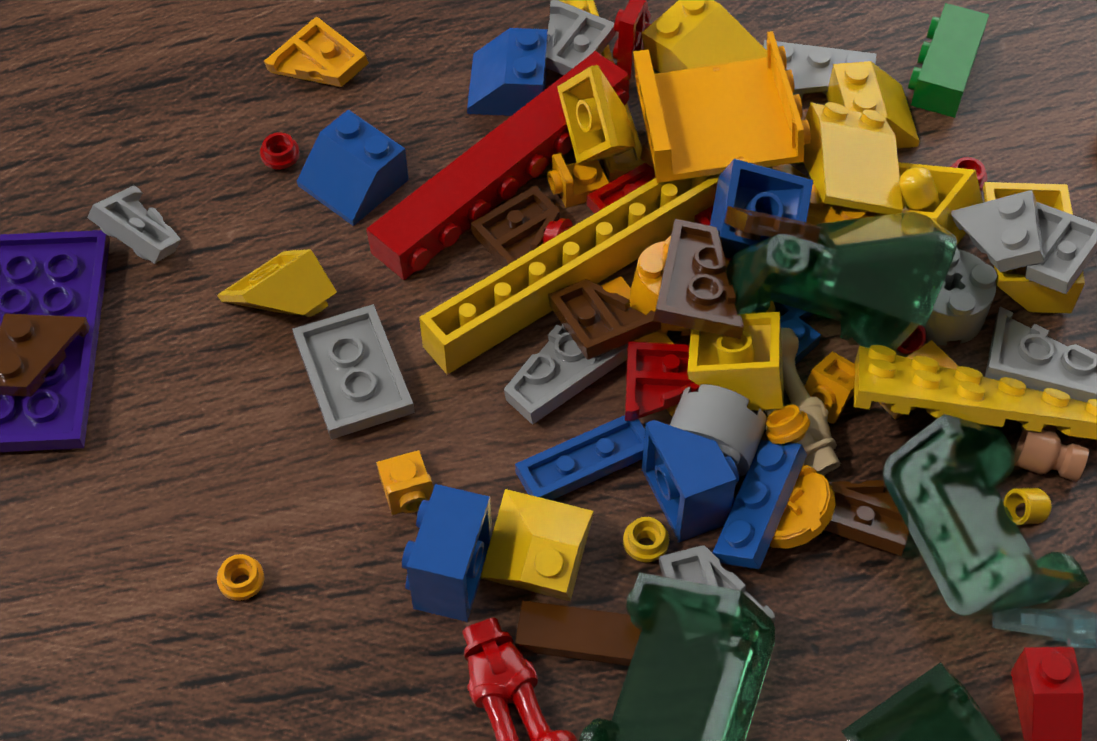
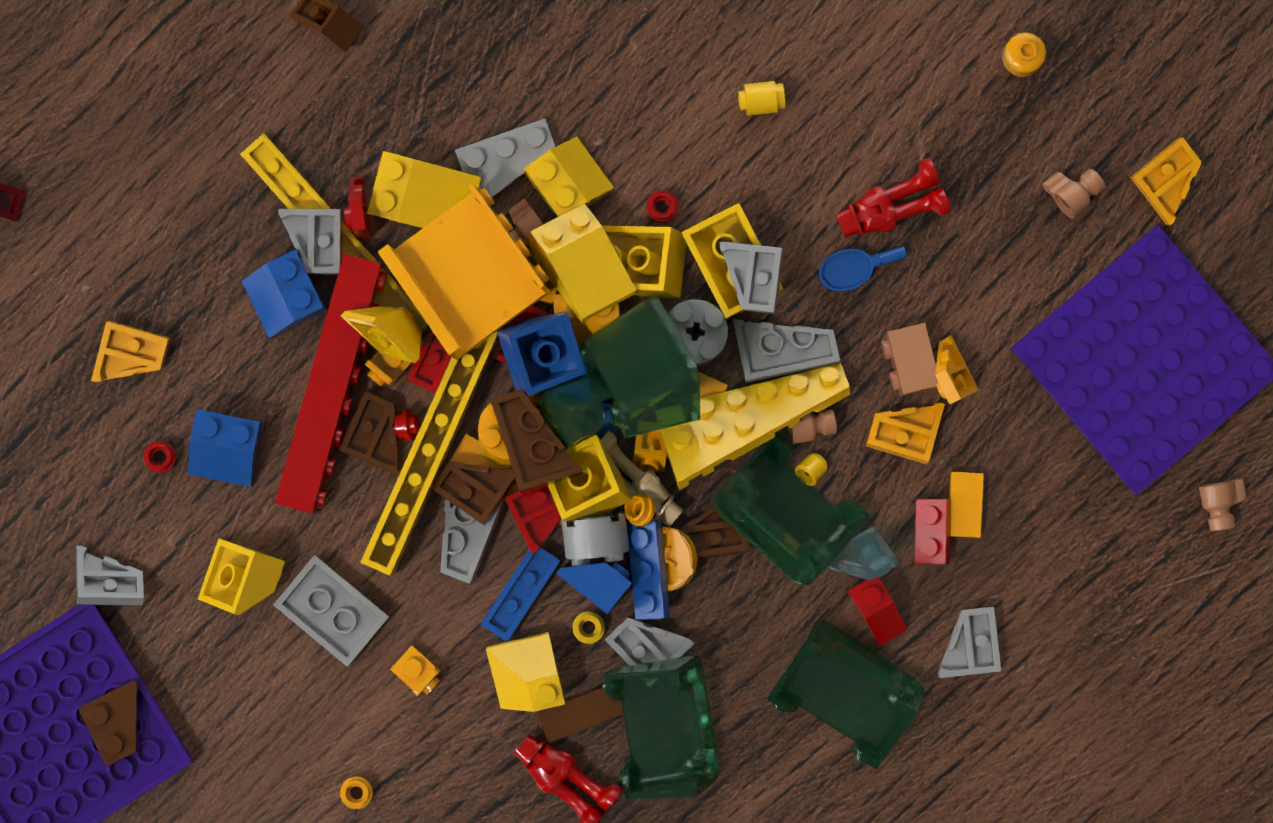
camera: 30 degrees left, 30 degrees up
(448, 552) = (478, 715): blue brick -> none
(754, 224) = (560, 380): reddish brown wing -> none
(918, 188) = (639, 268): yellow piece -> none
(947, 59) = (601, 97): green brick -> none
(1004, 230) = (714, 281): light grey wing -> none

